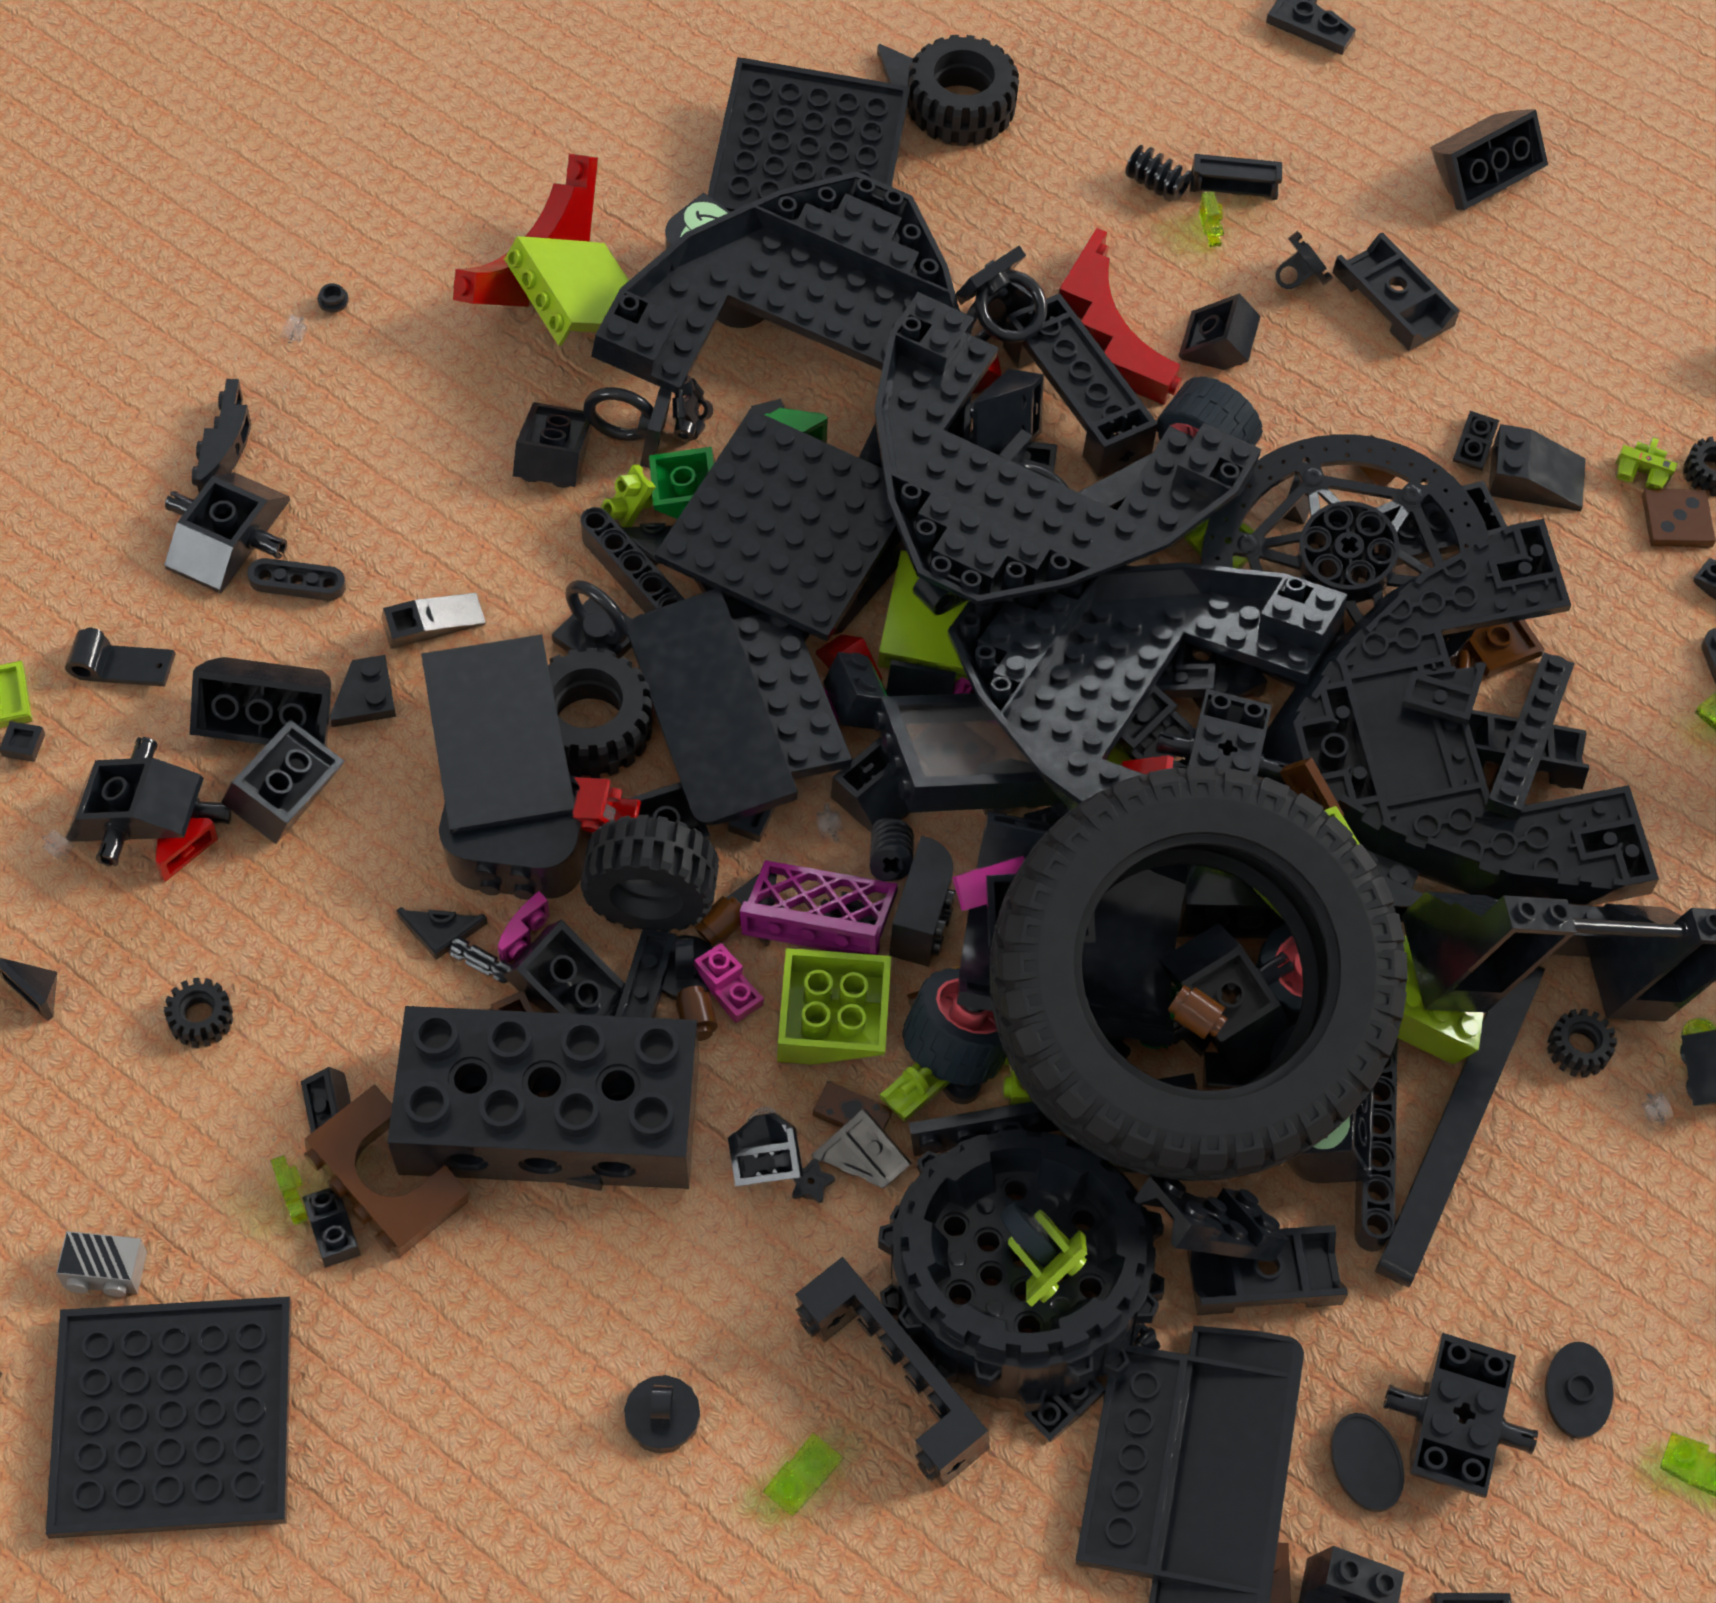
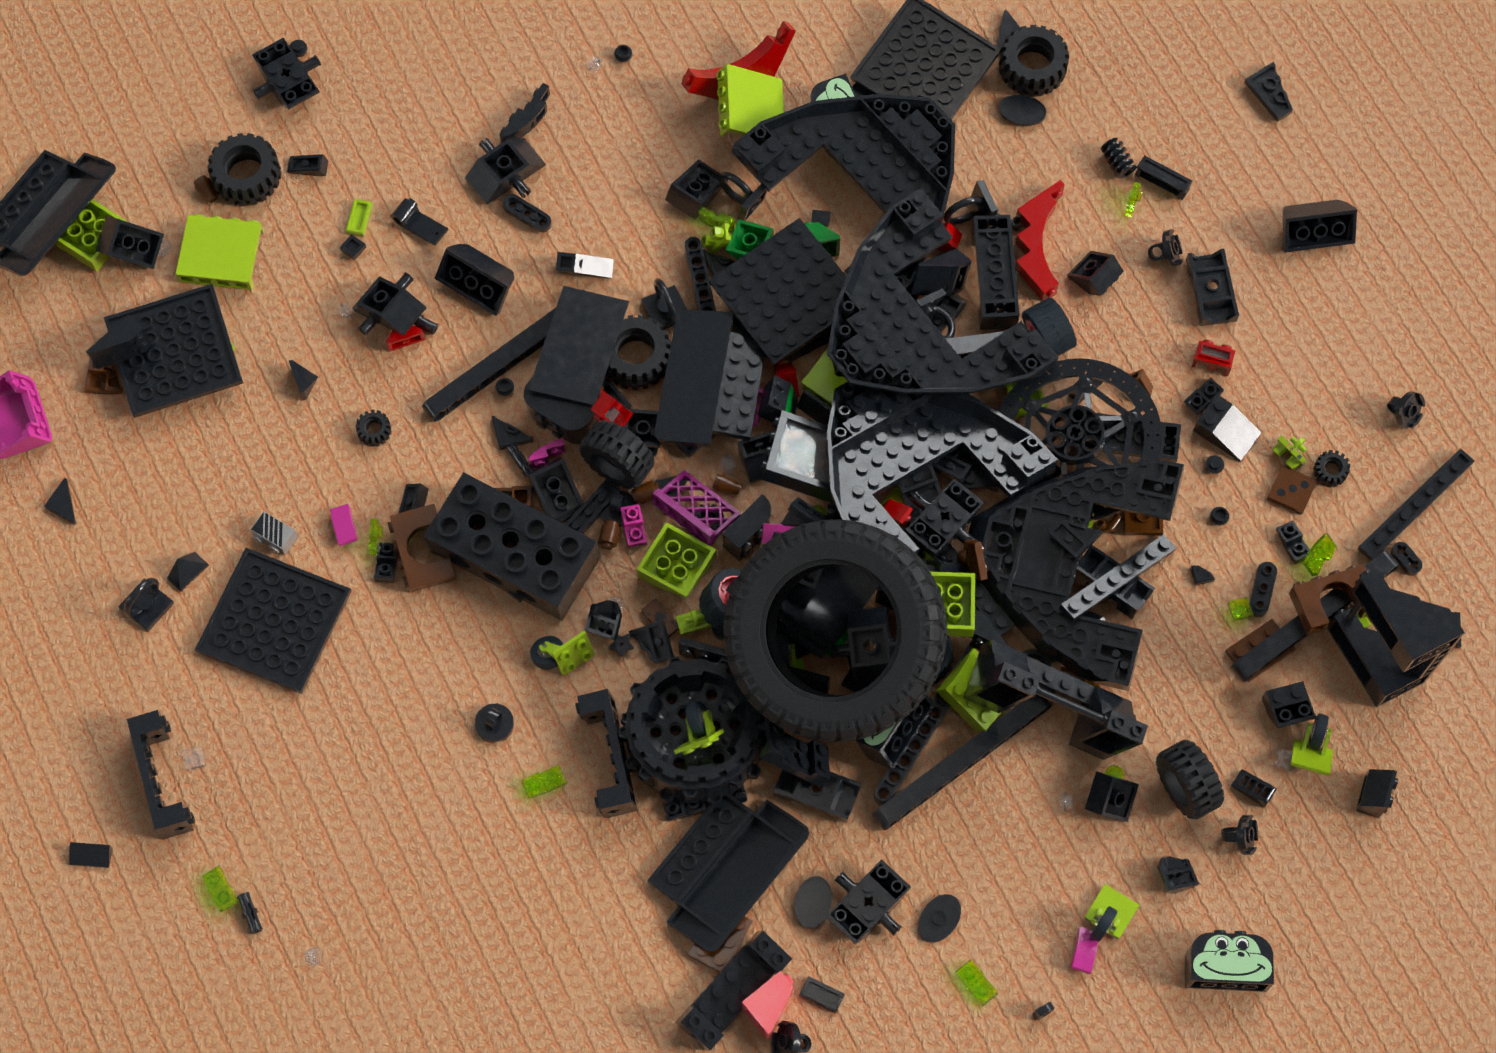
camera: 30 degrees right, 10 degrees up
(223, 1194) = (343, 525): none -> dark pink slope
(282, 781) = (467, 324): black slope -> none
(356, 835) = (488, 369): none -> black beam
(364, 693) = (532, 291): black wing -> none
(395, 855) = (504, 387): none -> black plate
(601, 477) = (711, 219): none -> clear neon green slope
(688, 409) = (777, 199): black piece -> none
(701, 1247) = (551, 652): none -> lime plate
(842, 856) = (726, 485): none -> reddish brown cone
(891, 849) = (747, 492): black piece -> none
(981, 163) = (1022, 110): none -> black piece
(991, 281) = (970, 195): black tile -> none
(1198, 1012) = (812, 651): reddish brown brick -> none
(1456, 378) = (1214, 356): none -> red window
(1555, 525) = (1214, 464): none -> black plate
(1591, 1028) = (1053, 740): black tyre -> none
(1604, 594) = (1219, 516): none -> black plate
(1631, 689) = (1201, 575): none -> black tile

